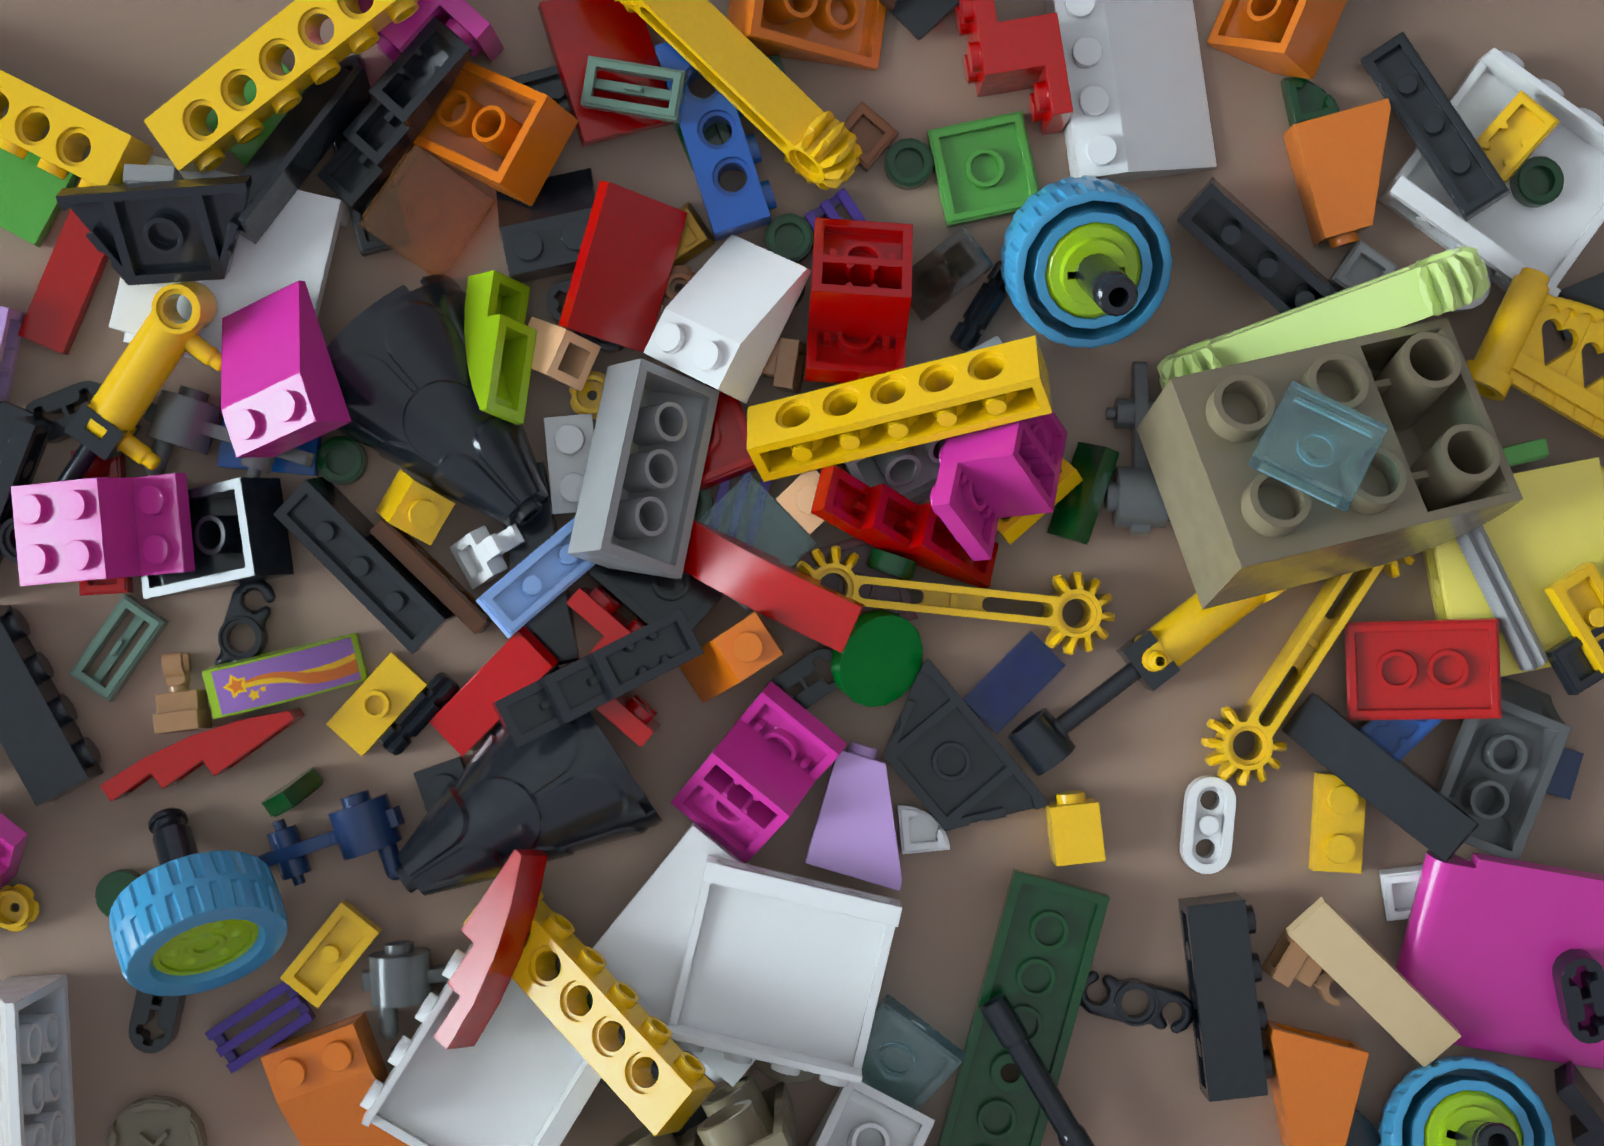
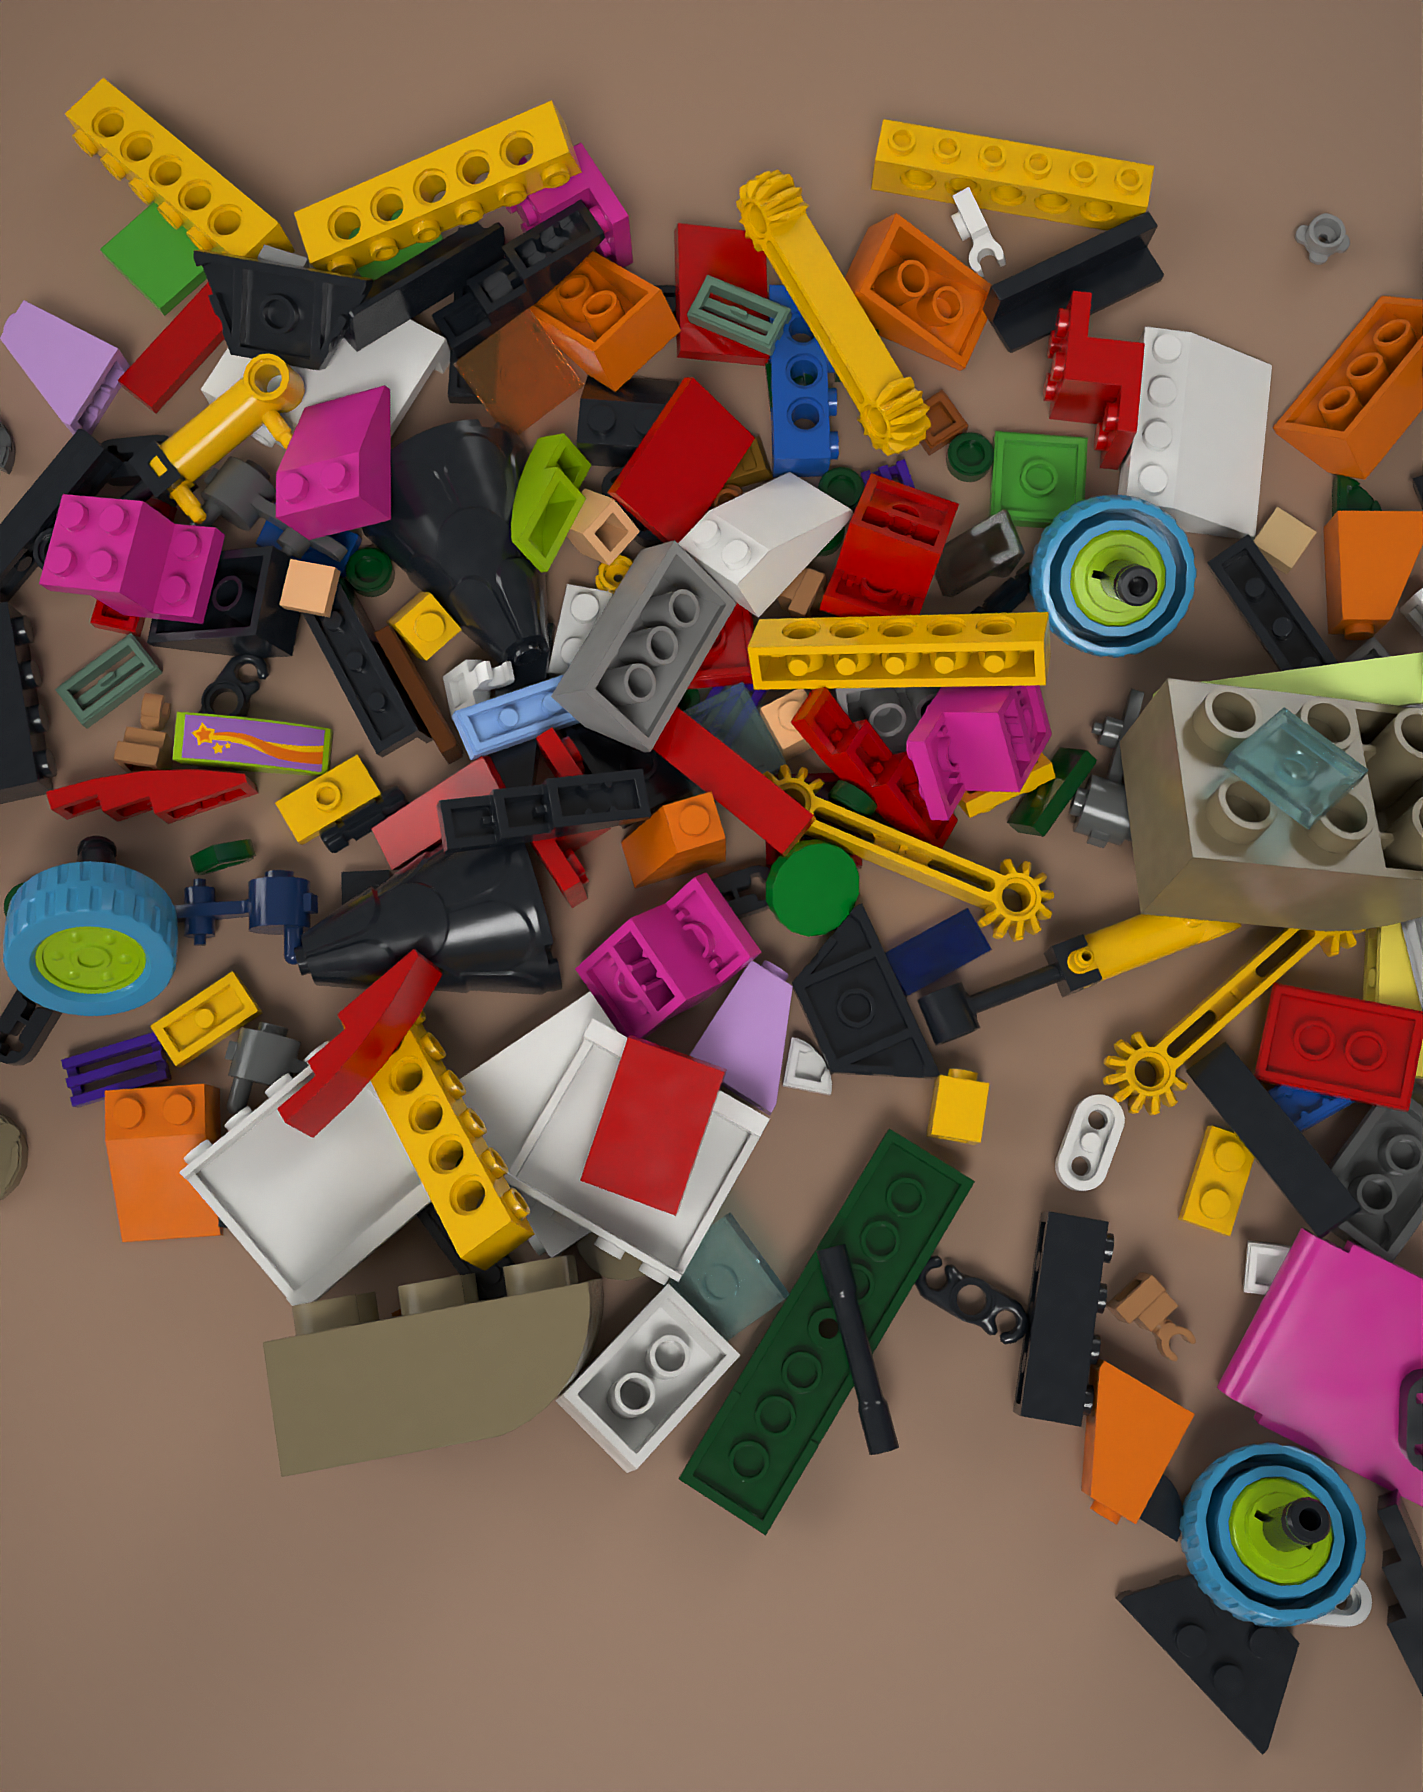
camera: 25 degrees right, 10 degrees down
(291, 508) = (310, 588): none -> light nougat tile
(794, 945) = (653, 1124): none -> red tile
(1244, 162) = (1283, 540): none -> tan tile
(1373, 982) = (1217, 1342): tan tile -> none

